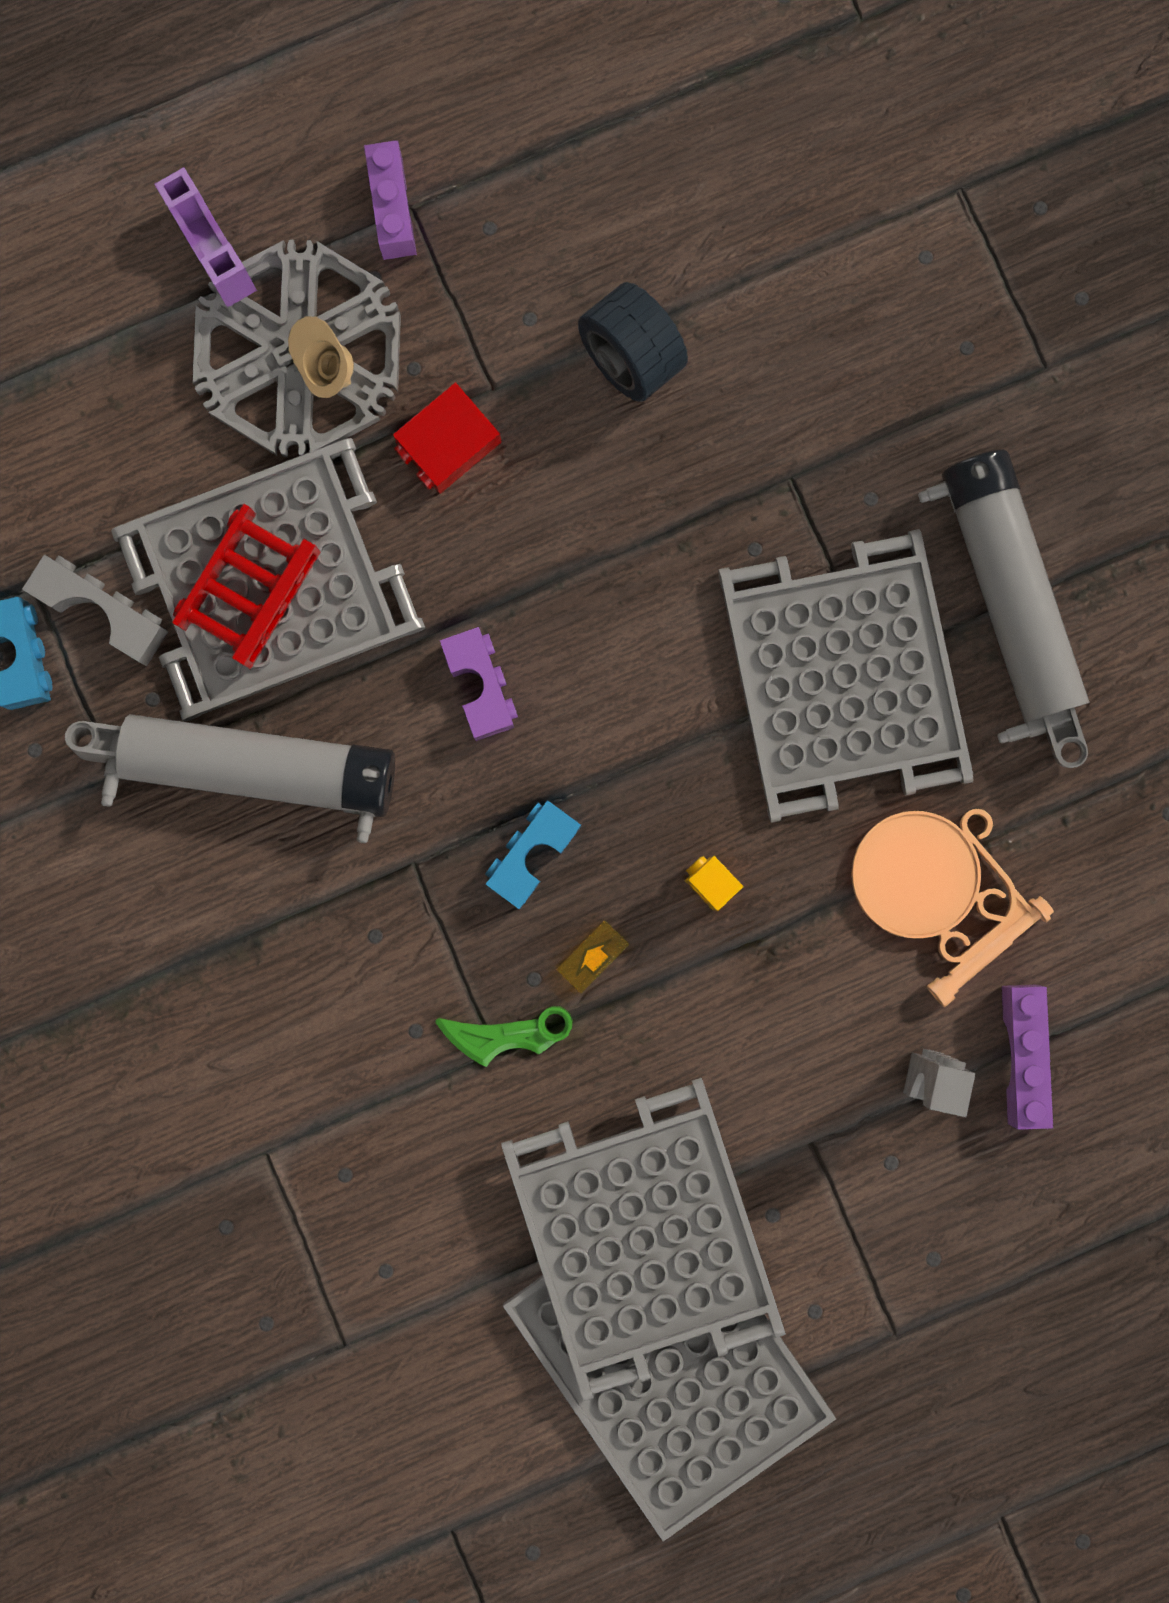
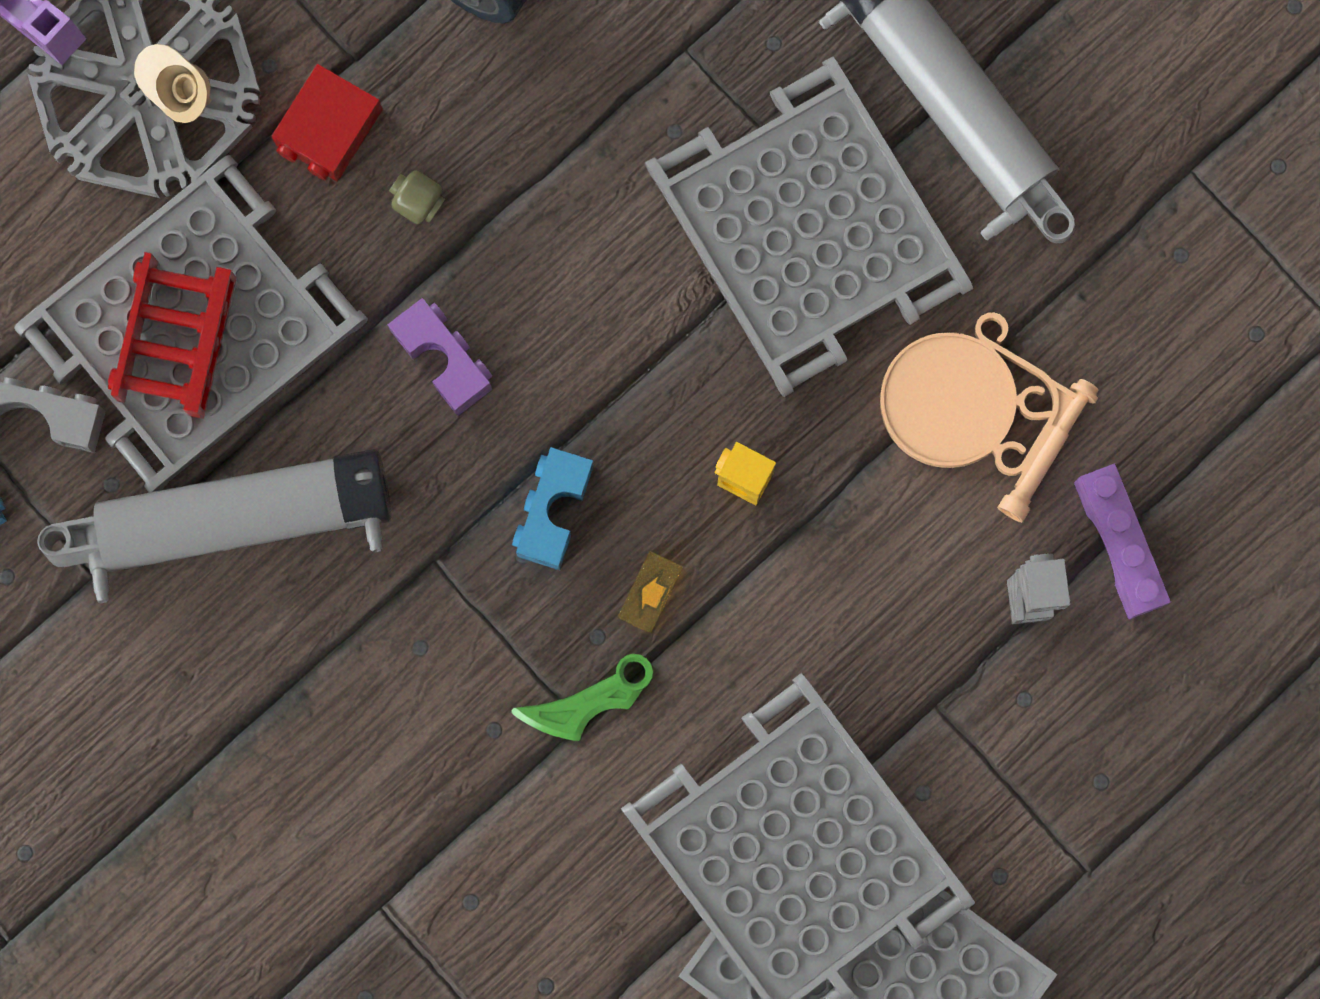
camera: 20 degrees left, 5 degrees down
(504, 532) = (416, 197): none -> olive head

